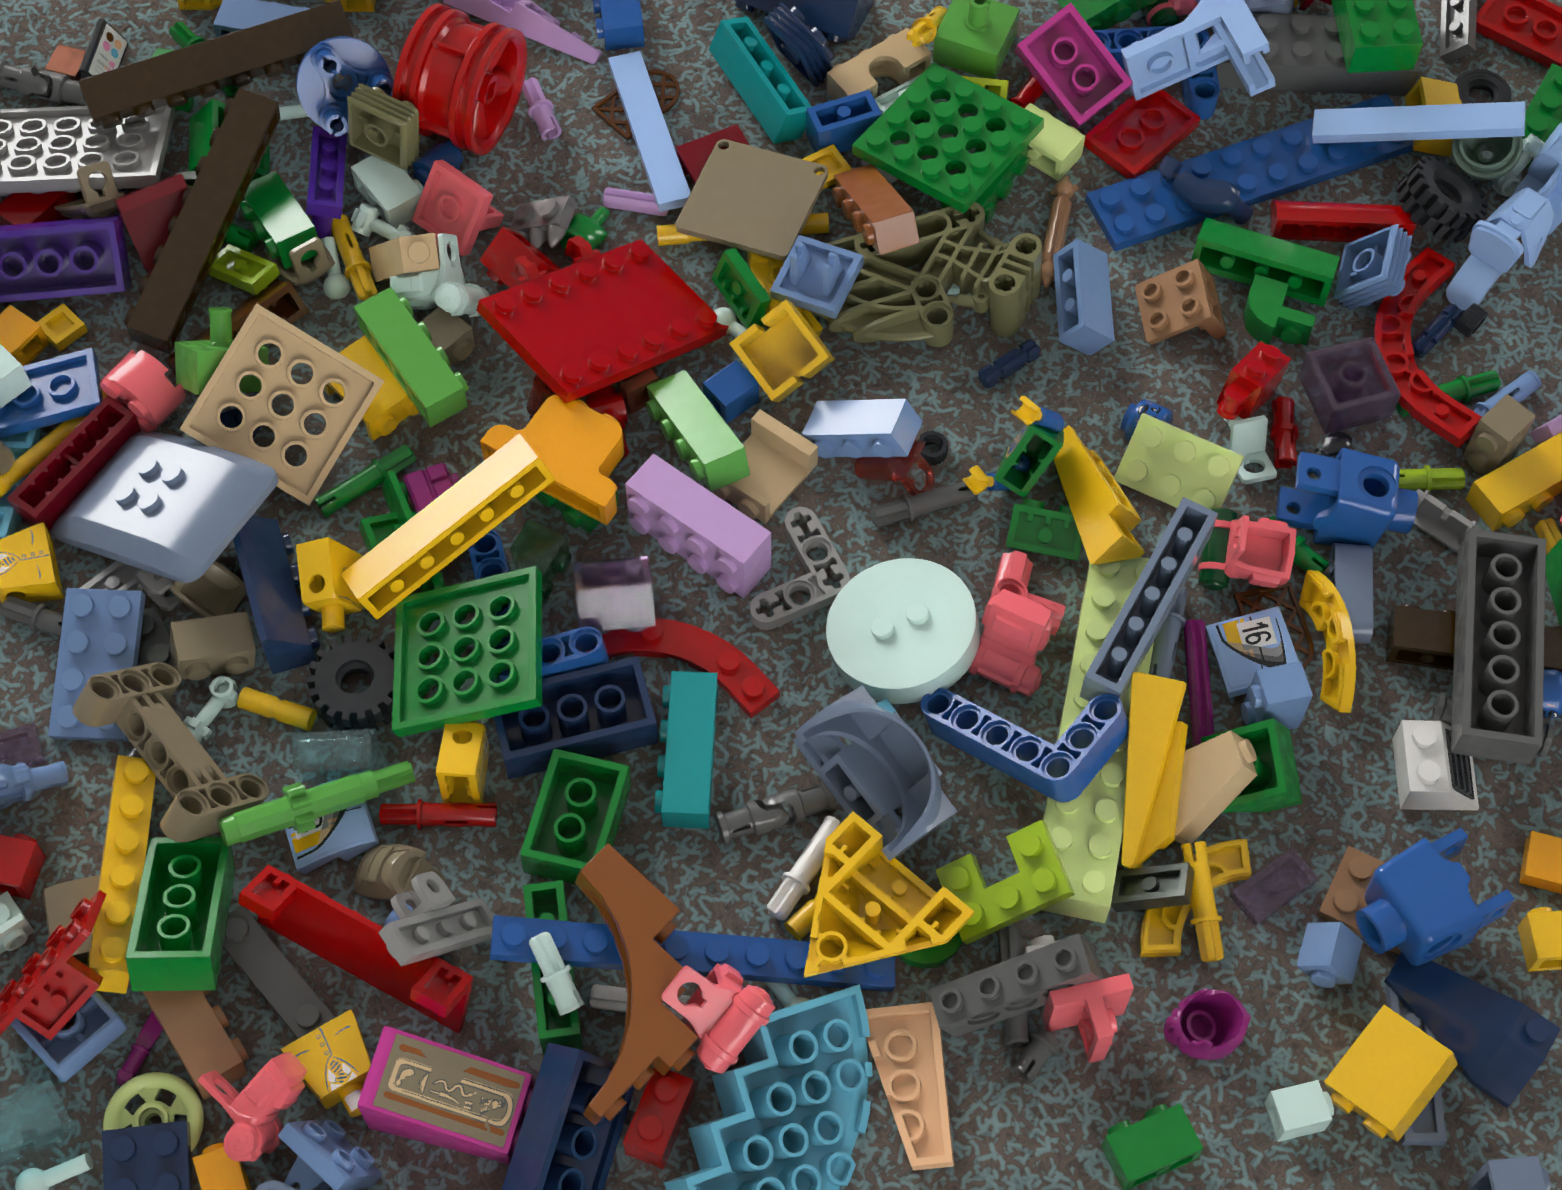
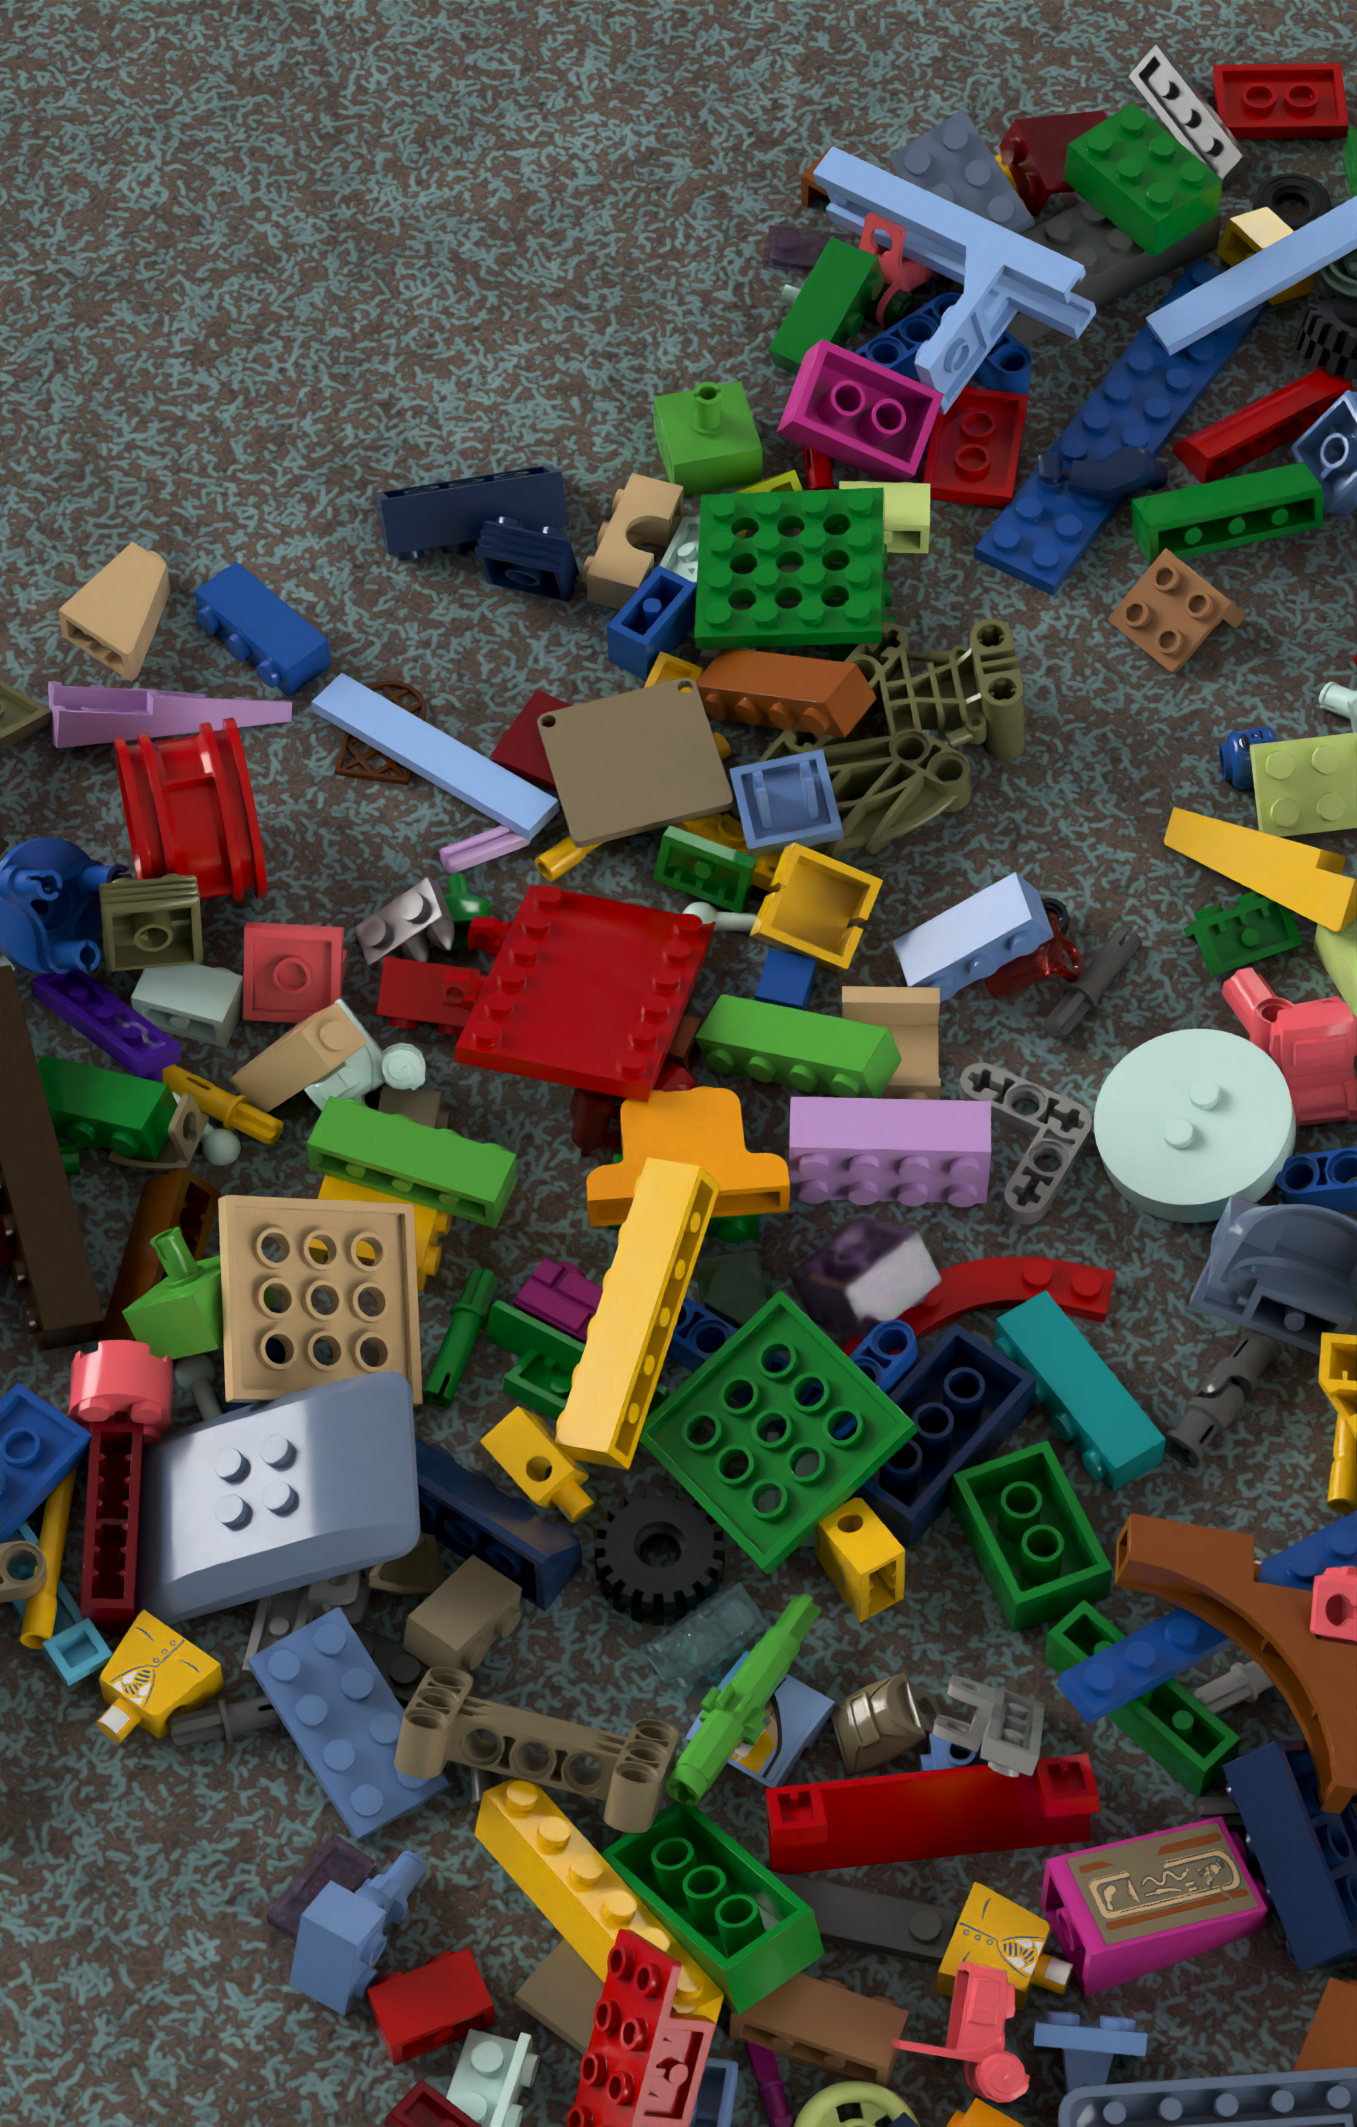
camera: 35 degrees left, 5 degrees down
(224, 696) = (516, 1665): light aqua bar -> none
(243, 269) = (111, 1189): lime plate -> none
(272, 707) = (582, 1643): yellow piece -> none
(366, 220) = (197, 1050): light aqua bar -> none
(439, 151) = (223, 936): blue brick -> none
(439, 814) = (871, 1632): red axle -> none
(541, 110) = (286, 808): lavender axle -> none
(555, 973) = (1176, 1688): light aqua axle -> none
(760, 79) = (514, 625): teal brick -> none
(802, 873) = (1299, 1419): white axle -> none
(925, 28) = (657, 462): yellow axle -> none
(1009, 363) = (1050, 781): dark blue axle -> none
(1026, 455) = (1165, 860): torso -> none
(1056, 226) = (964, 586): medium nougat wheel -> none
(1083, 297) = (1075, 661): medium blue brick -> none
(1252, 382) = (1327, 646): red brick -> none
(1267, 317) = (1276, 571): green brick -> none

